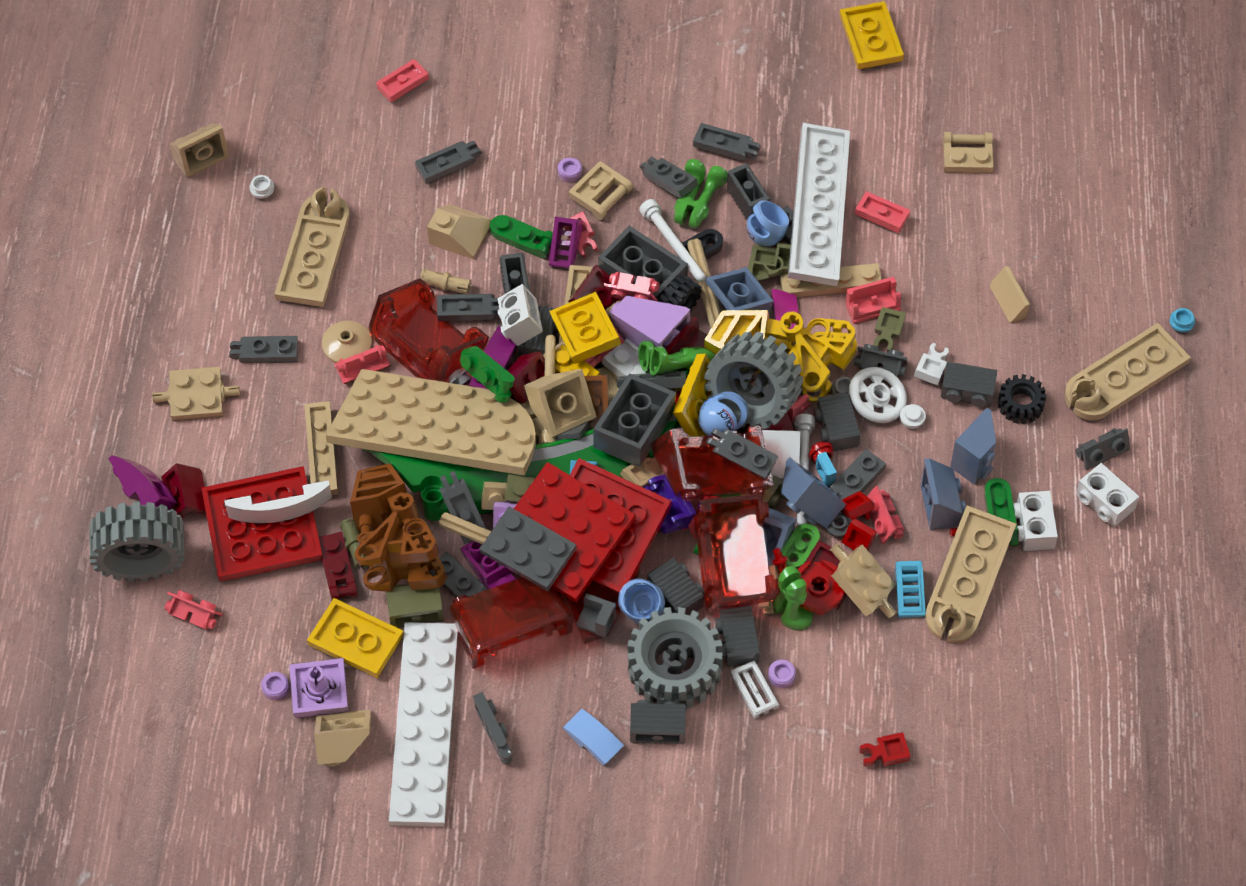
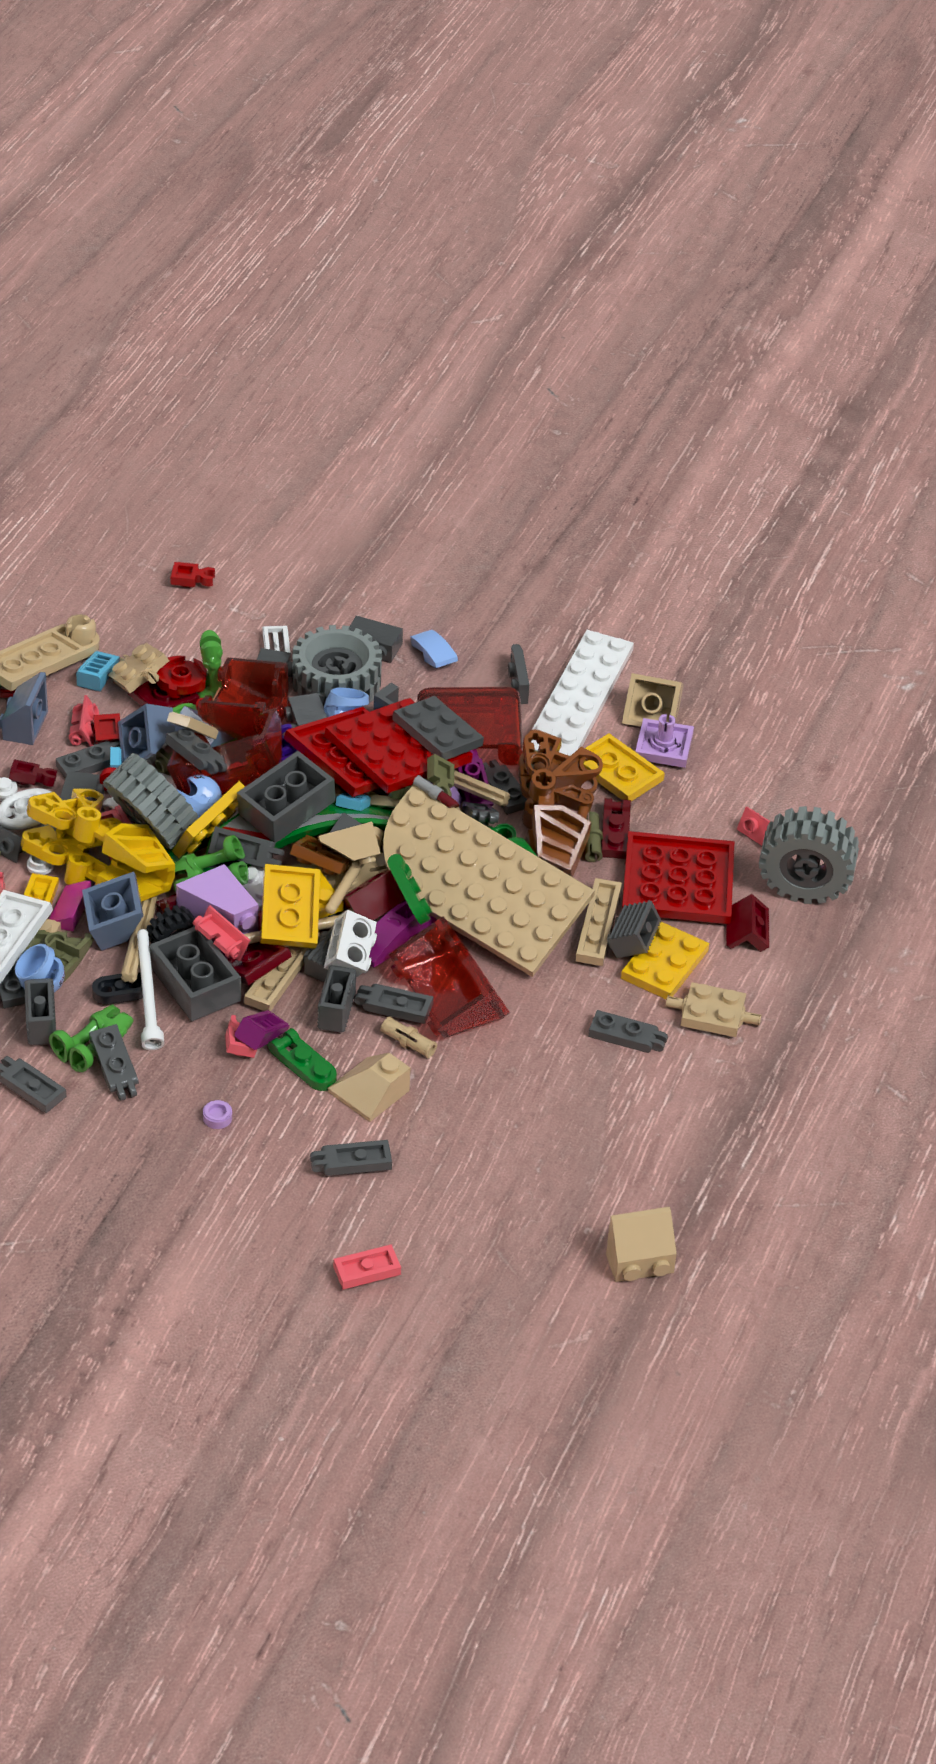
camera: 165 degrees left, 15 degrees down
(141, 483) = (788, 929): magenta slope -> none
(251, 433) = (667, 963): none -> yellow plate
(261, 186) = (579, 1196): white plate -> none
(275, 686) = (703, 760): lavender tile -> none
(281, 509) = (658, 862): white slope -> none
(284, 436) = (634, 929): none -> dark grey brick
(314, 249) = (541, 1109): tan plate -> none
(337, 348) = (537, 1019): tan dish -> none
(371, 359) = (521, 986): coral hinge -> none
(499, 463) = (435, 792): none -> light grey piece
(505, 493) = (440, 773): none -> olive plate
(595, 184) = (198, 1082): tan plate -> none
(765, 479) = (192, 724): none -> tan tile
(781, 673) = (246, 648): lavender tile -> none
(813, 304) = (42, 887): none -> yellow plate
(858, 534) = (114, 707): red tile -> none
(900, 435) = (30, 773): none -> dark red plate

